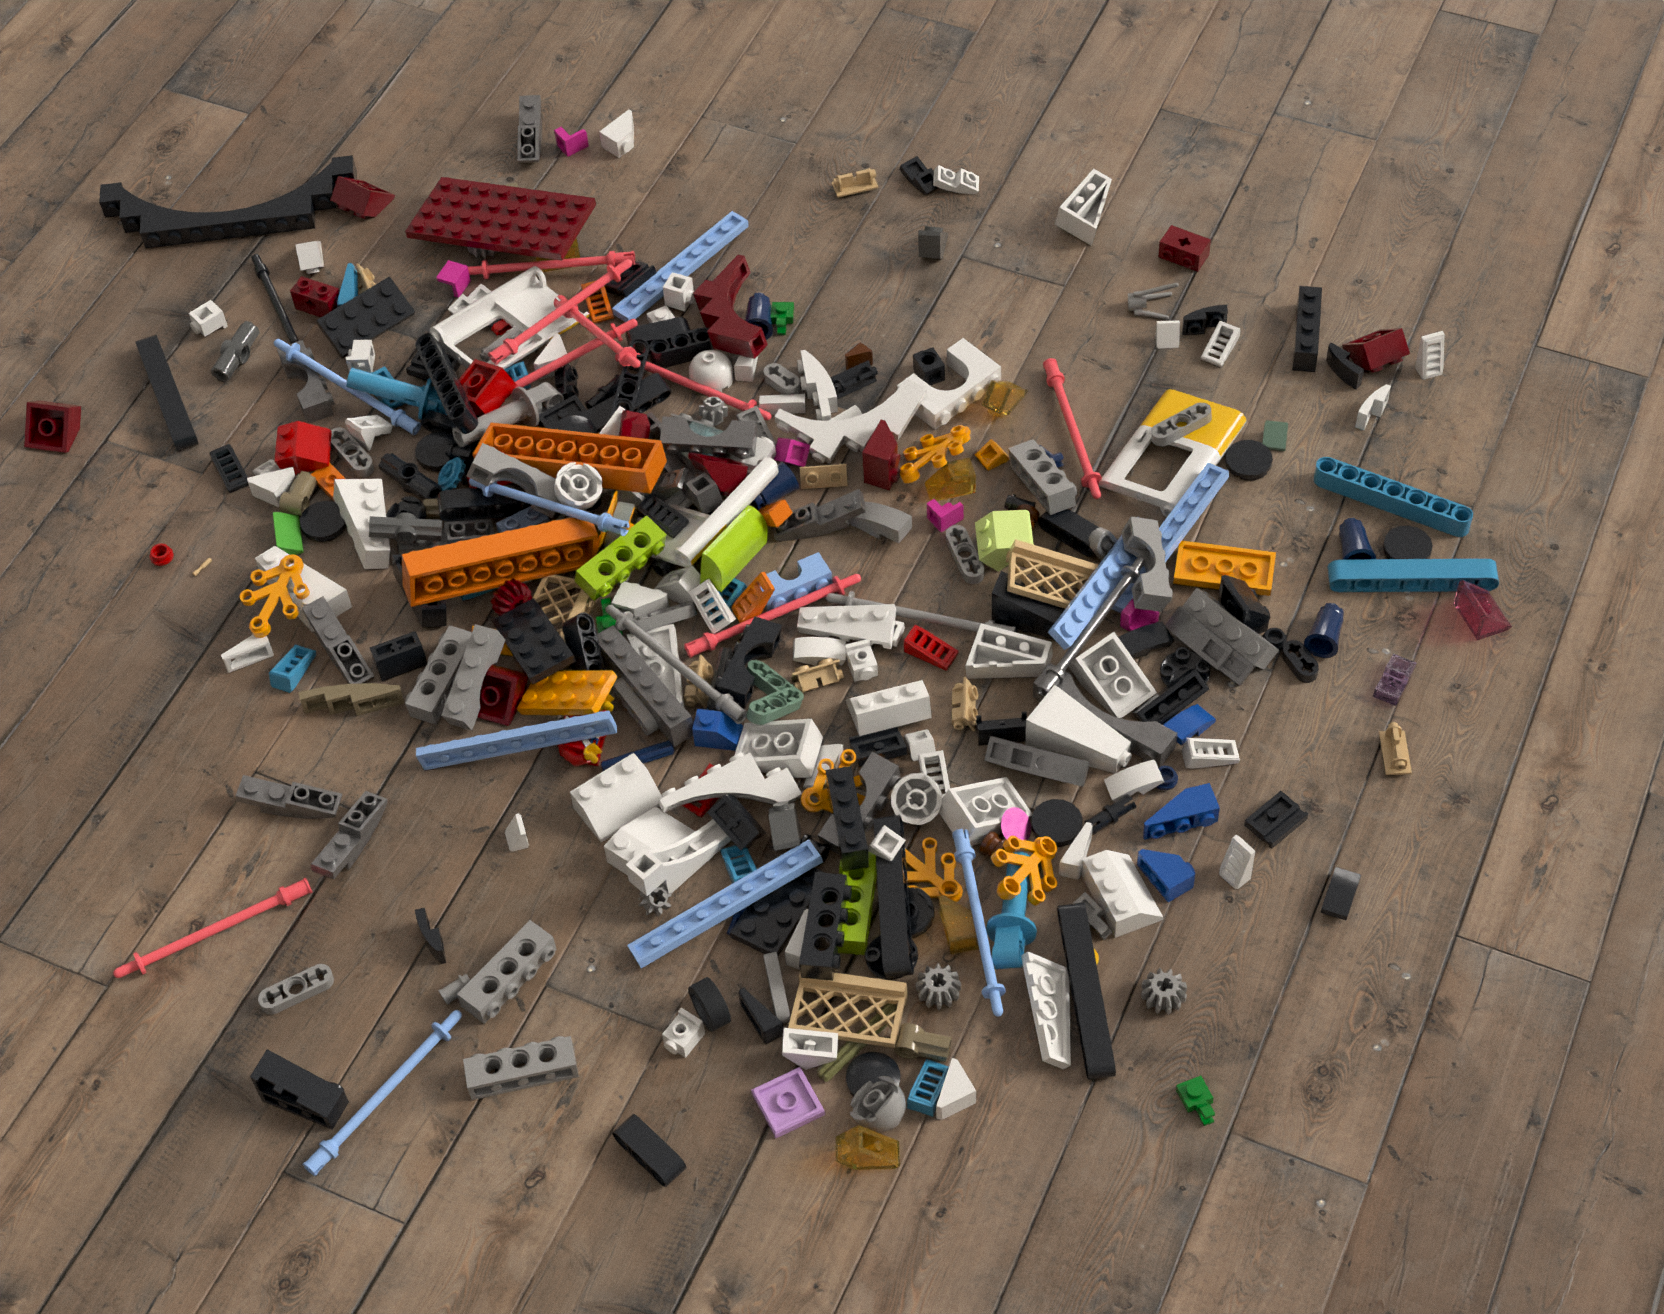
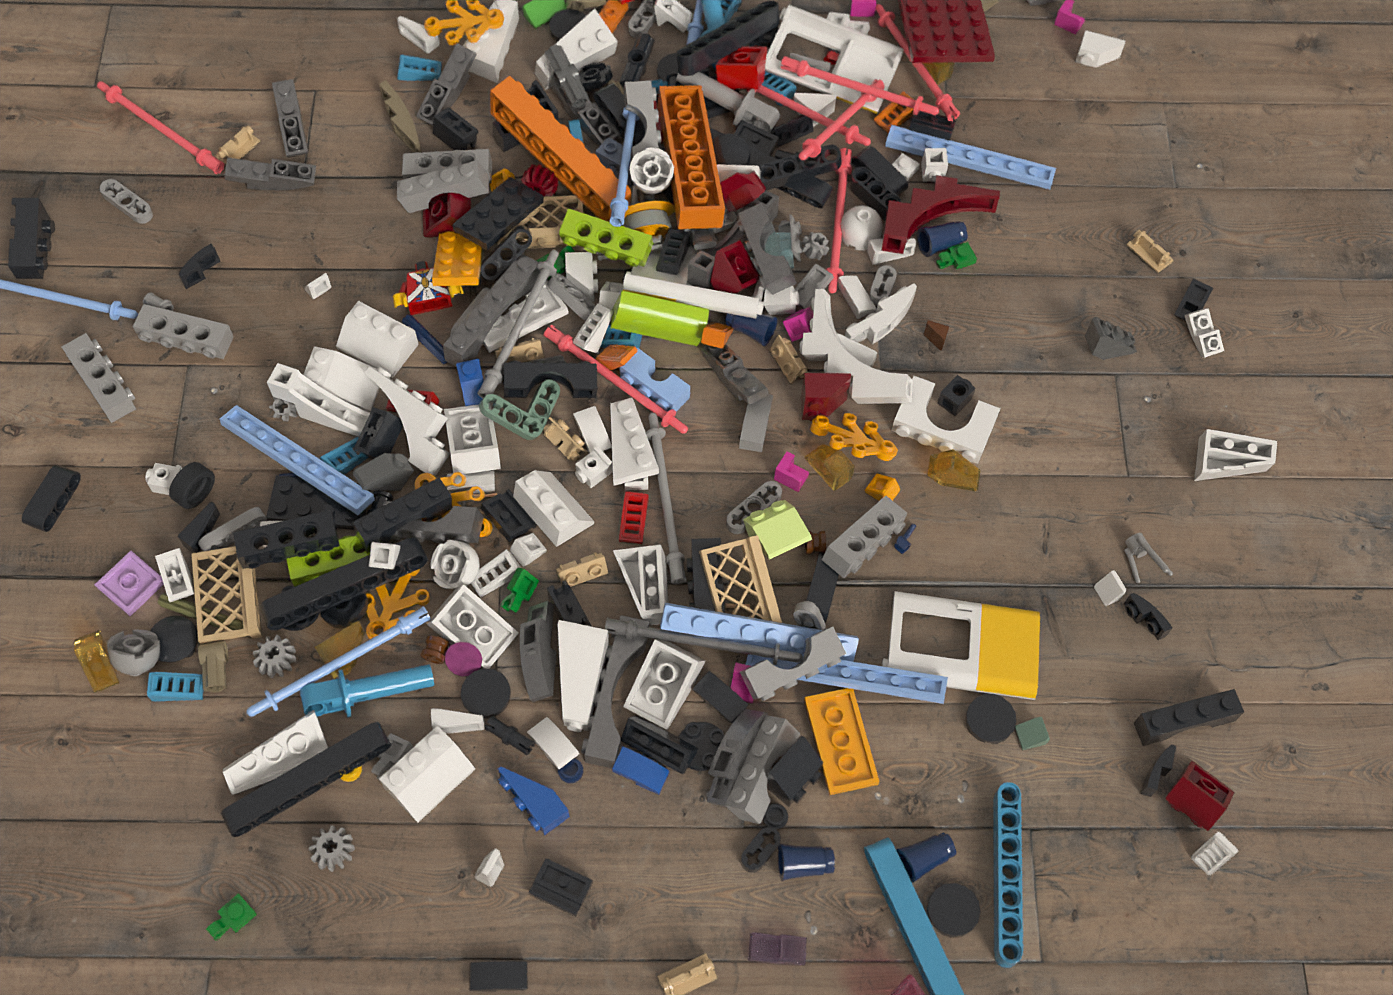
camera: 60 degrees right, 10 degrees up
(290, 860) = (239, 146): none -> tan hinge
(516, 740) = (398, 248): light blue plate -> none
(854, 379) = (910, 339): black hinge -> none
(956, 1092) = (175, 708): white slope -> none
(961, 757) = (521, 587): none -> green plate
(1013, 502) = (830, 526): black pin -> none
(1043, 850) = (417, 683): light orange plant -> none
(1056, 379) = (999, 508): coral bar -> none
(1166, 872) = (460, 808): blue slope -> none
(1184, 248) = (1232, 564): dark red brick -> none
(1194, 757) = (615, 779): white slope -> none
(1195, 417) = (1011, 641): light grey beam -> none
(1228, 331) = (1134, 634): white slope -> none
(1373, 405) = (1125, 818): white slope -> none

